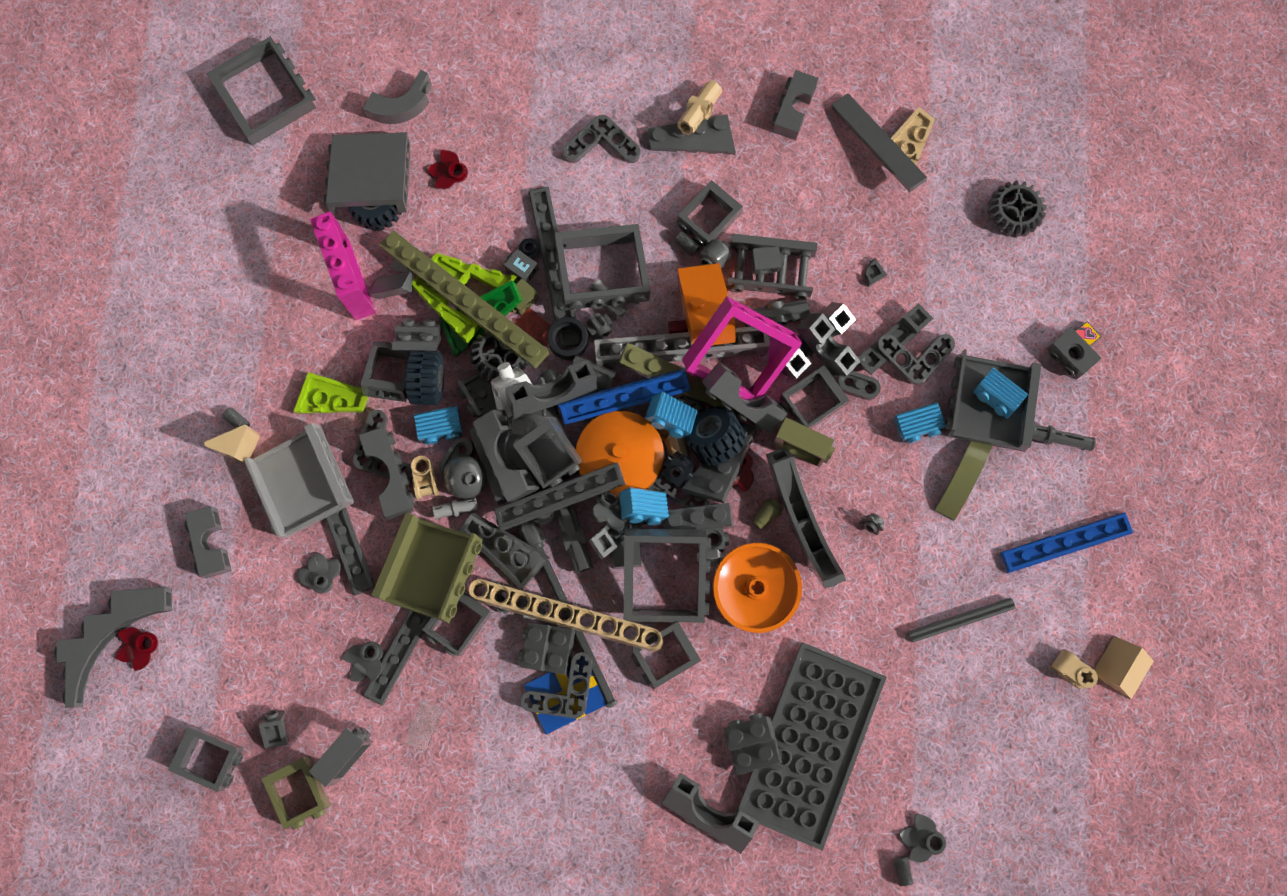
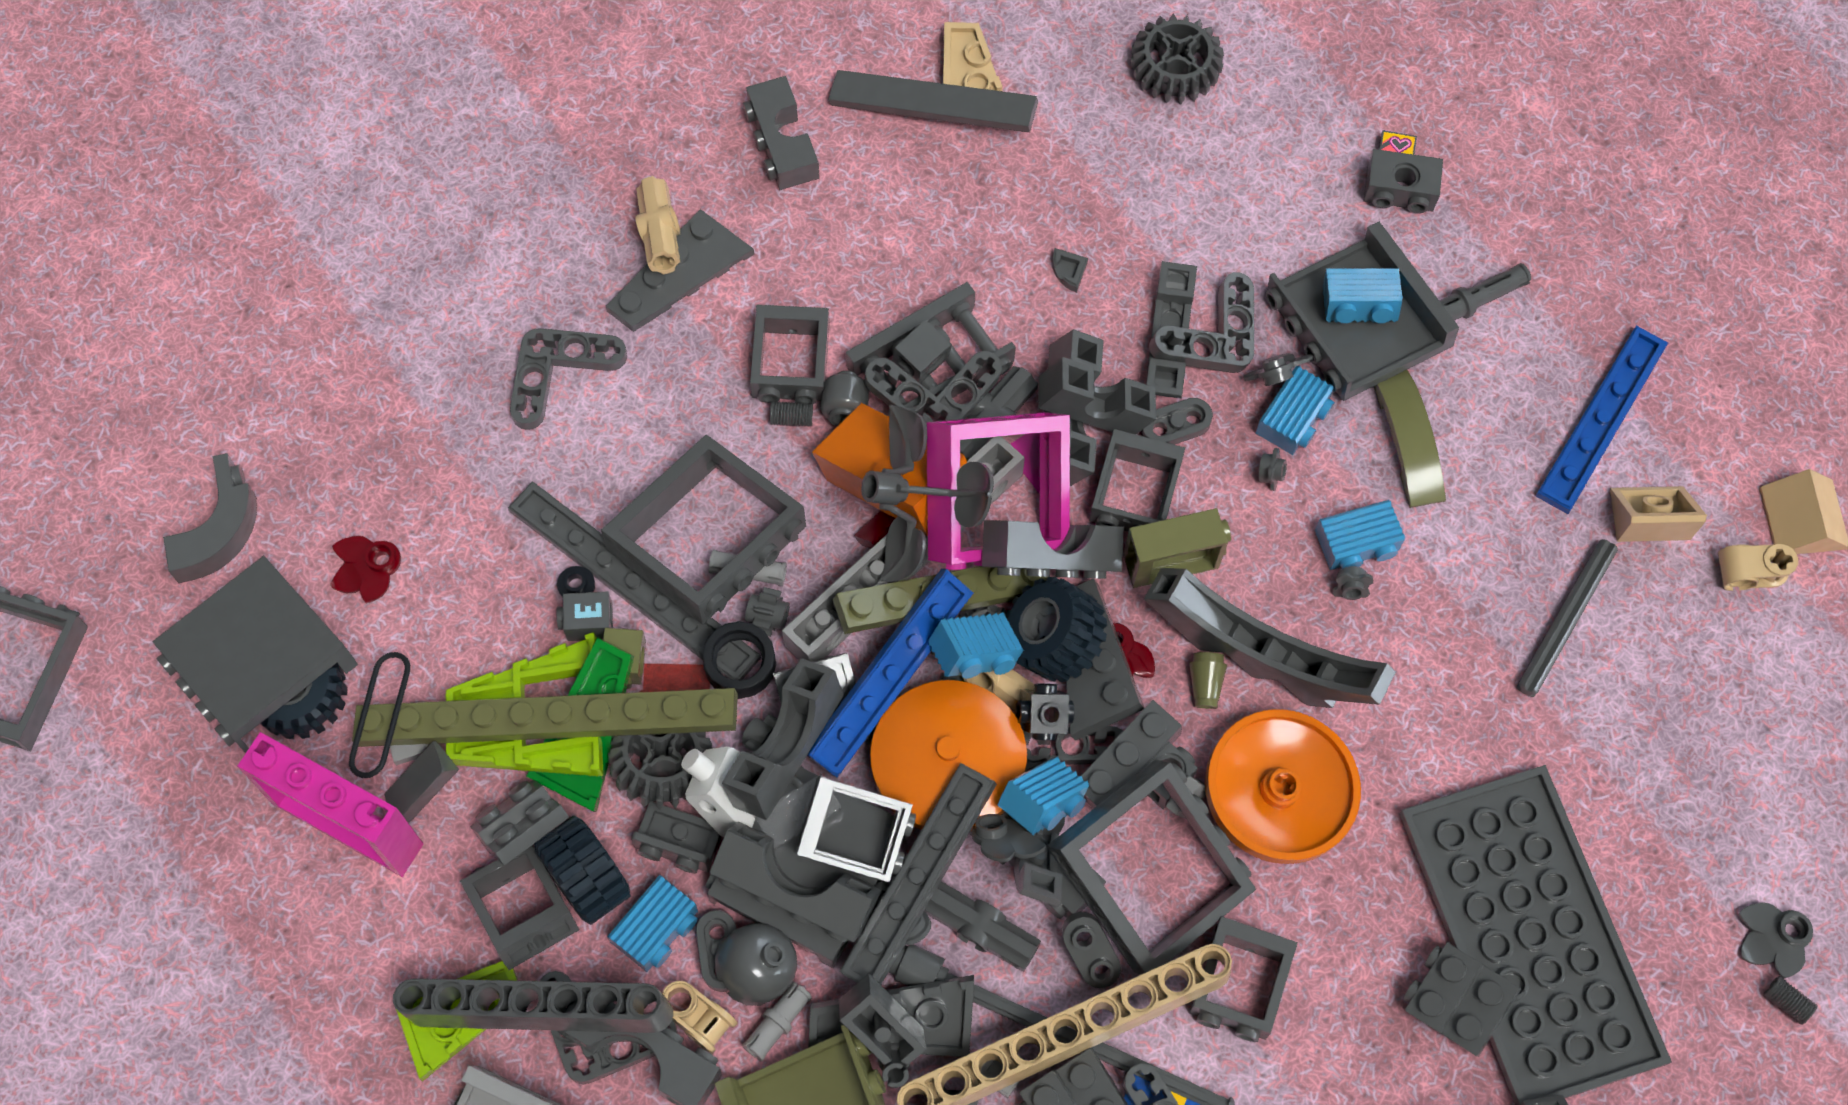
camera: 45 degrees left, 10 degrees down
(361, 425) = (547, 1015): none -> dark grey beam
(400, 249) = (354, 770): none -> black piece
(489, 547) = (883, 1028): none -> dark grey hinge
(610, 590) = (1091, 952): none -> dark grey plate
(684, 313) = (904, 541): none -> dark grey plant
(755, 292) = (943, 404): none -> dark grey beam
(884, 441) = (1272, 469): none -> dark grey plate
(897, 505) = (1360, 535): none -> dark azure brick
(927, 396) = (1277, 368): none -> dark grey plate
(1049, 606) = (1655, 514): none -> tan slope

